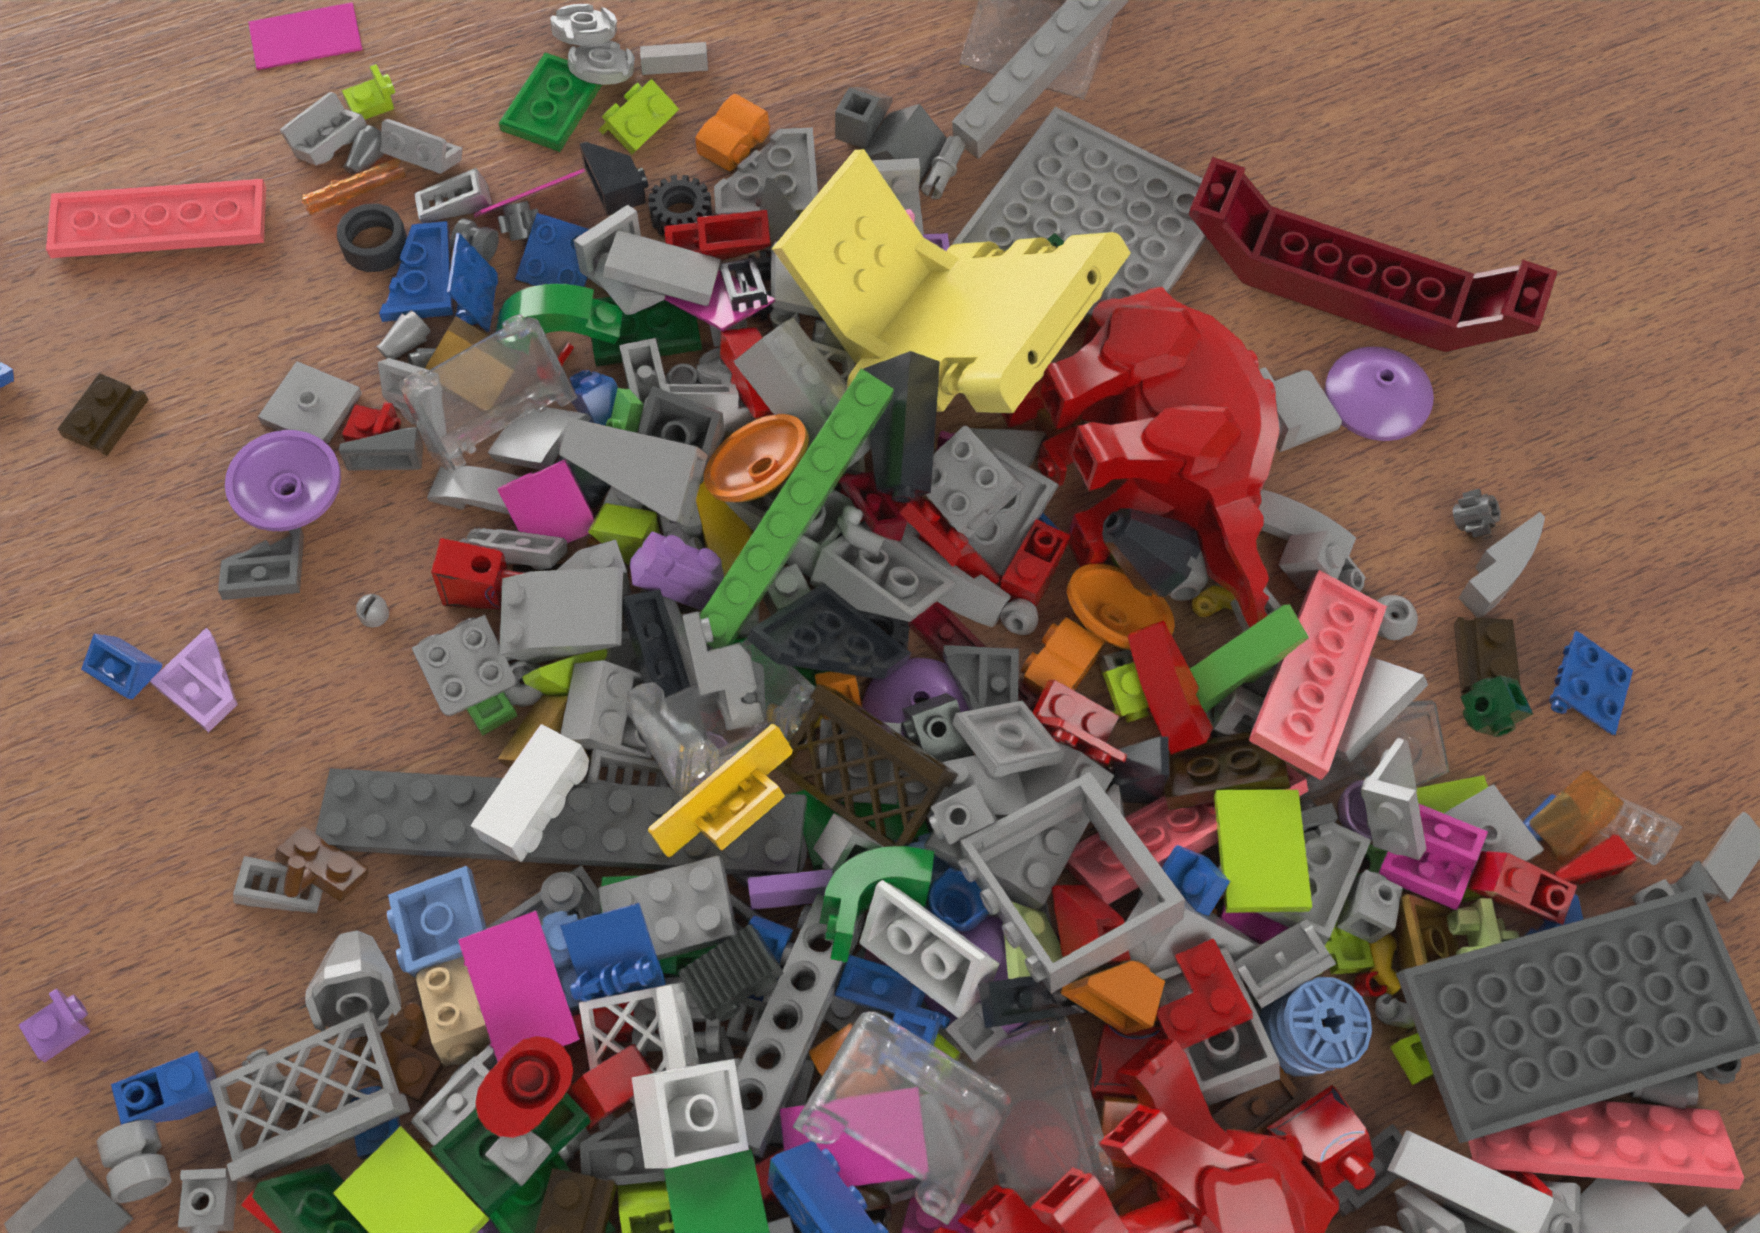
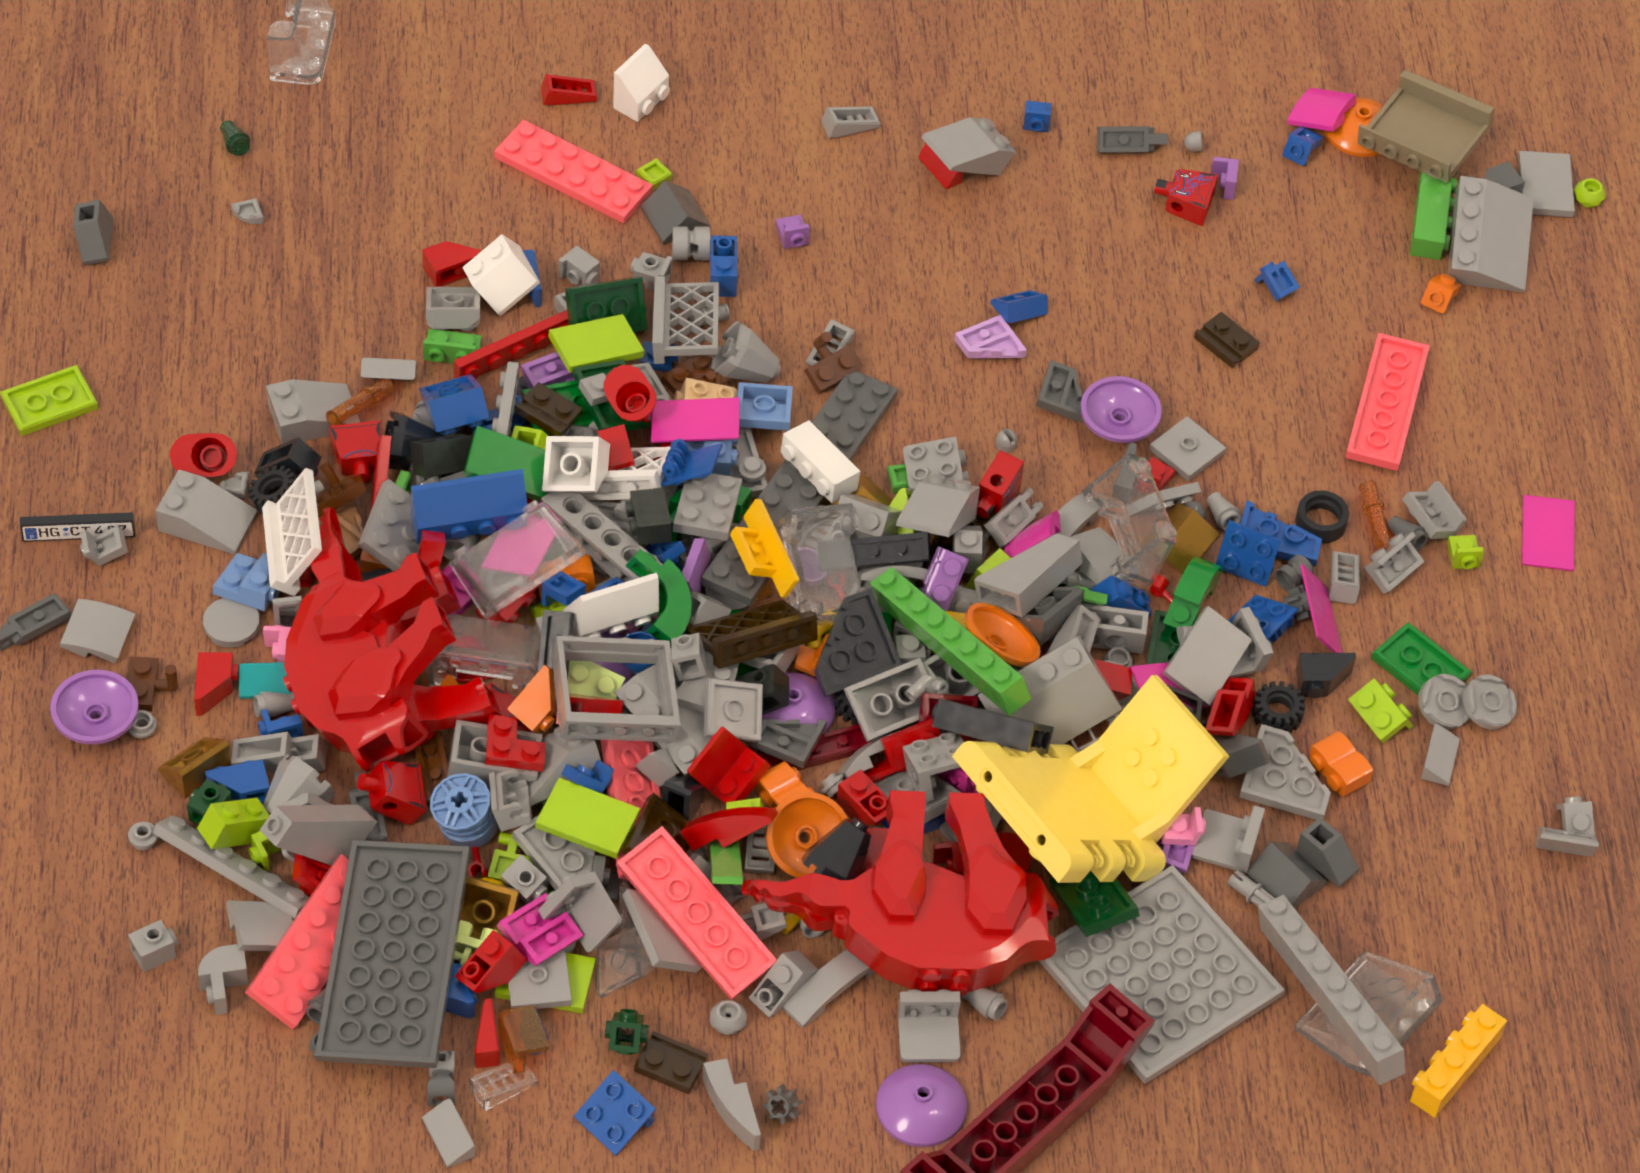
camera: 110 degrees right, 10 degrees down
(728, 673) = (852, 570): light grey plate -> none

